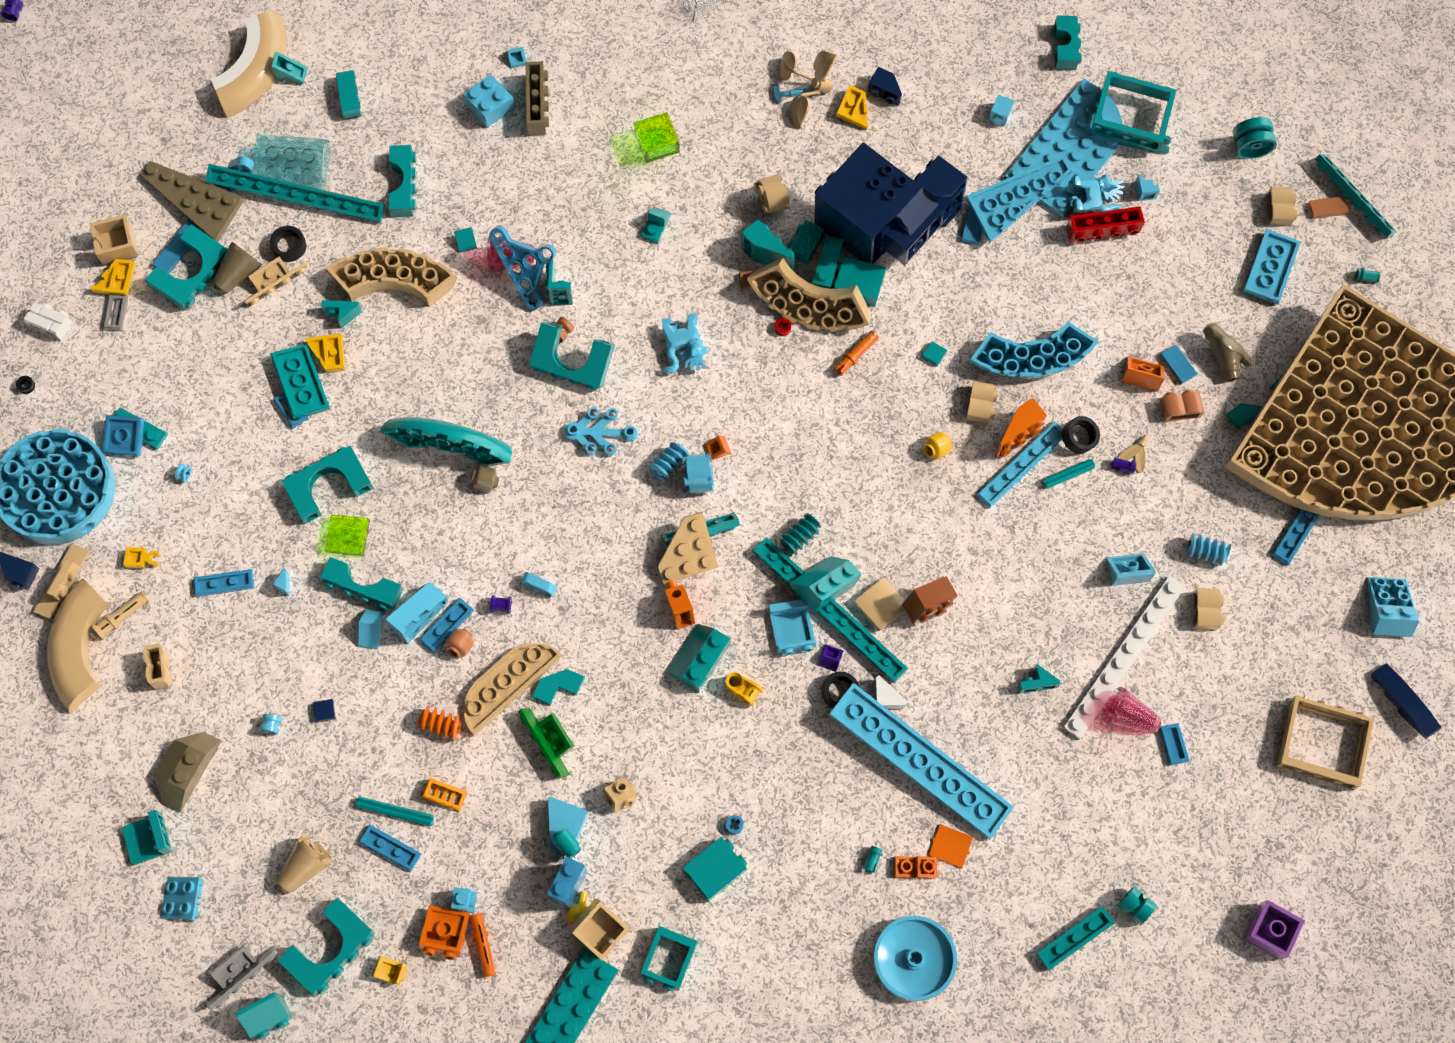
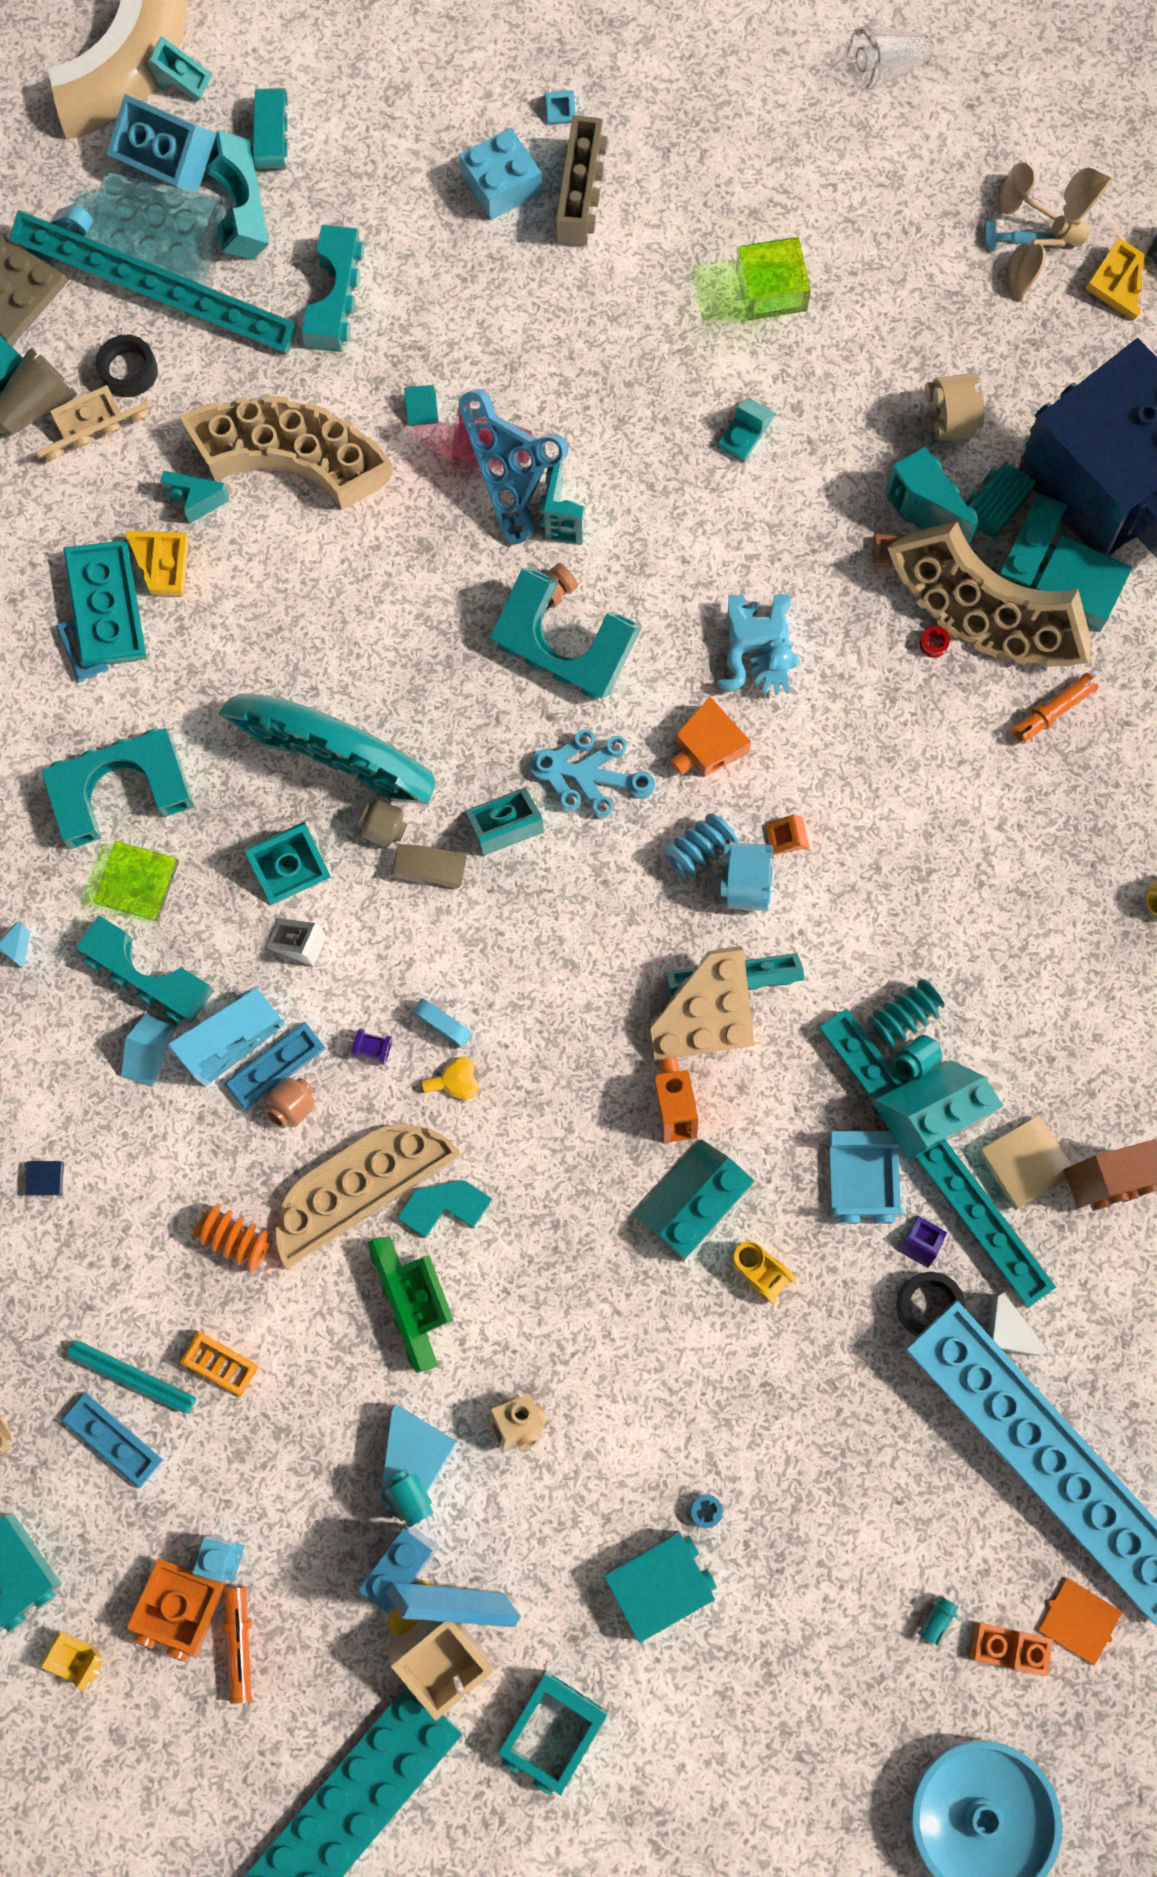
camera: 15 degrees right, 5 degrees up
(286, 113) = (161, 143): none -> medium azure brick
(330, 118) = (244, 227): none -> teal arch
(434, 510) = (287, 863): none -> teal slope
(447, 552) = (297, 940): none -> white slope
(516, 497) = (428, 863): none -> dark tan slope
(552, 614) = (455, 1080): none -> yellow rock
(555, 466) = (505, 821): none -> teal slope
(599, 894) = (452, 1605): none -> dark azure tile
(664, 402) = (708, 741): none -> orange torso
(810, 557) = (917, 1058): none -> teal brick

